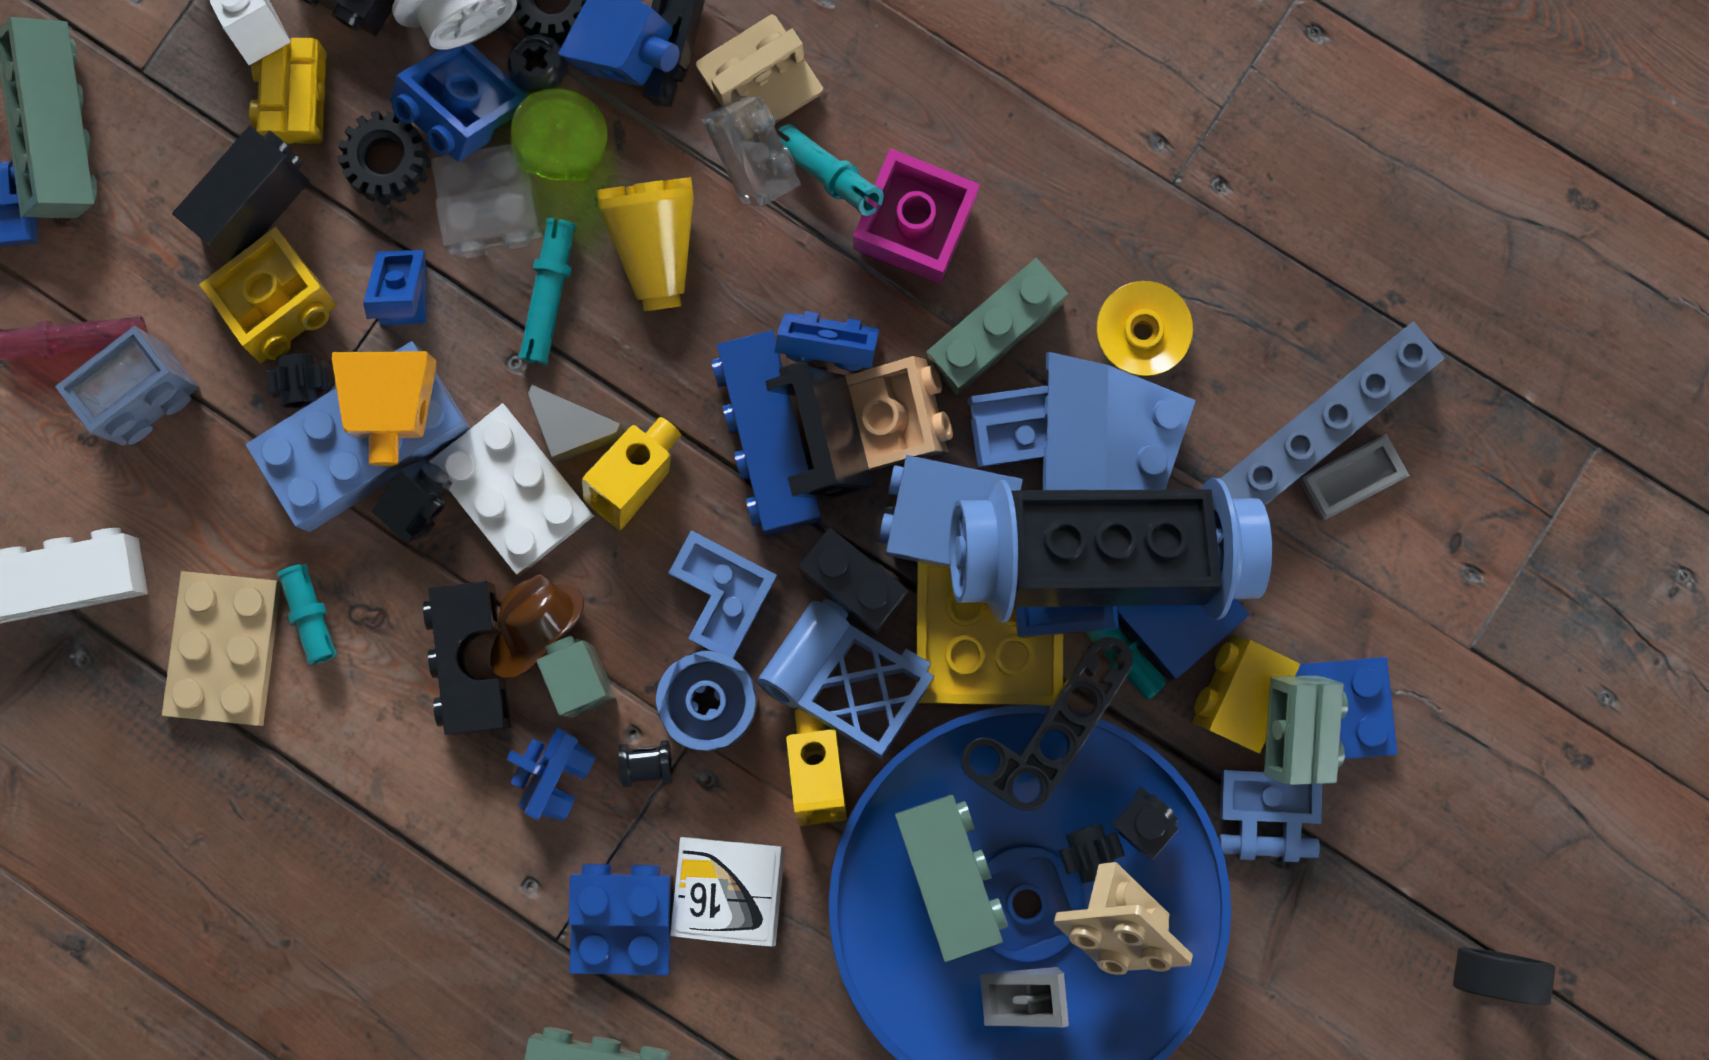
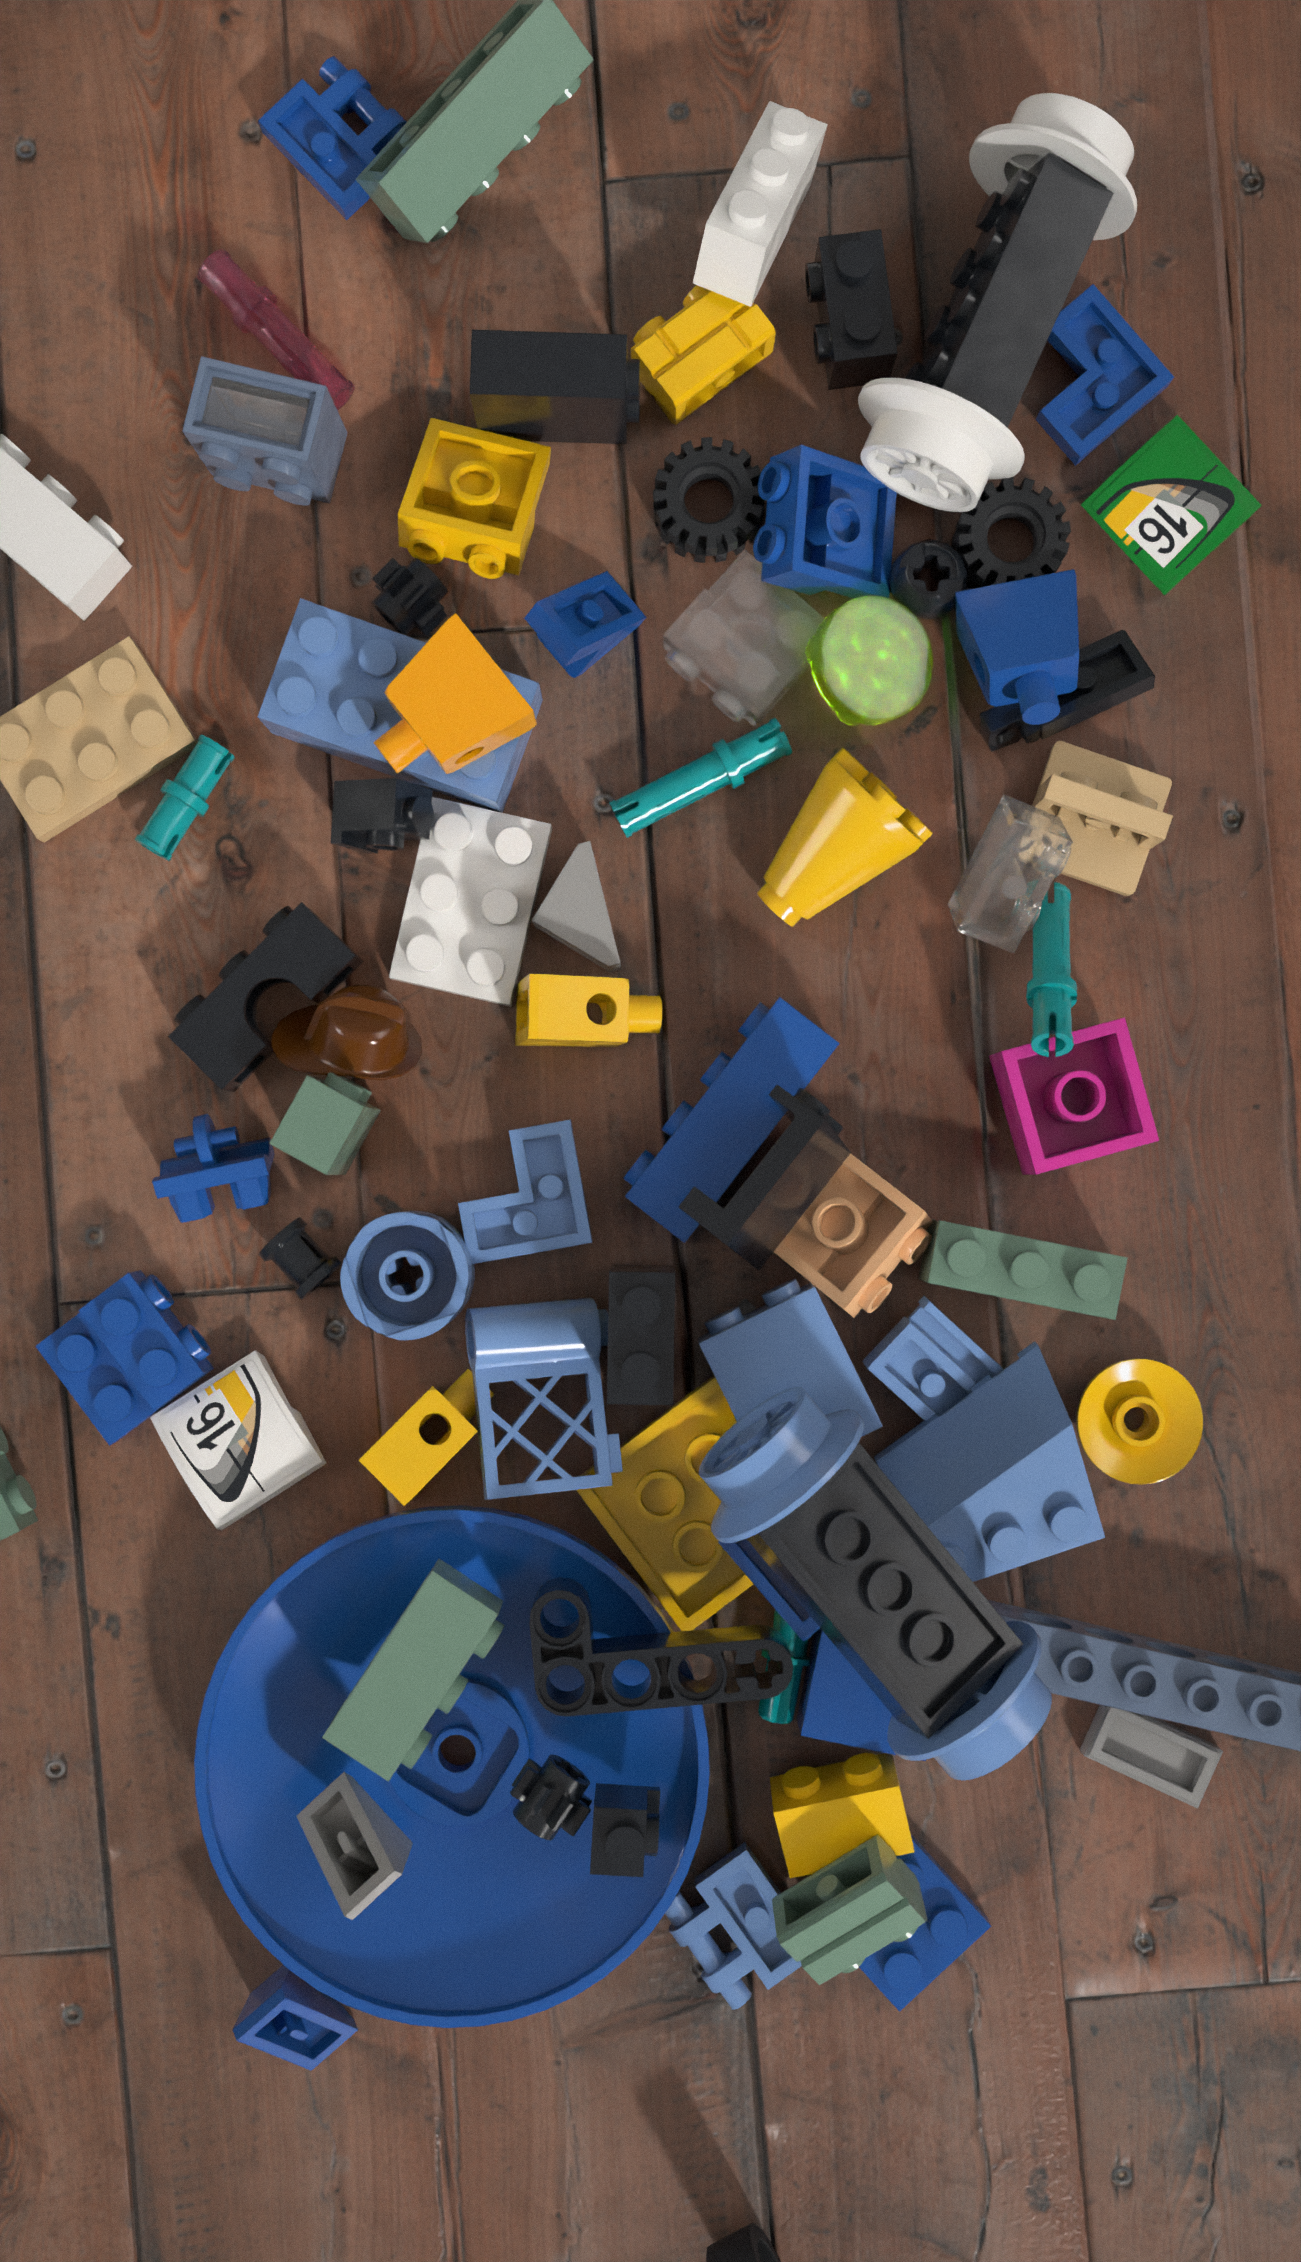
camera: 50 degrees right, 5 degrees up
(812, 338) = (872, 1107): blue plate -> none
(1123, 926) = (500, 1895): tan bracket -> none

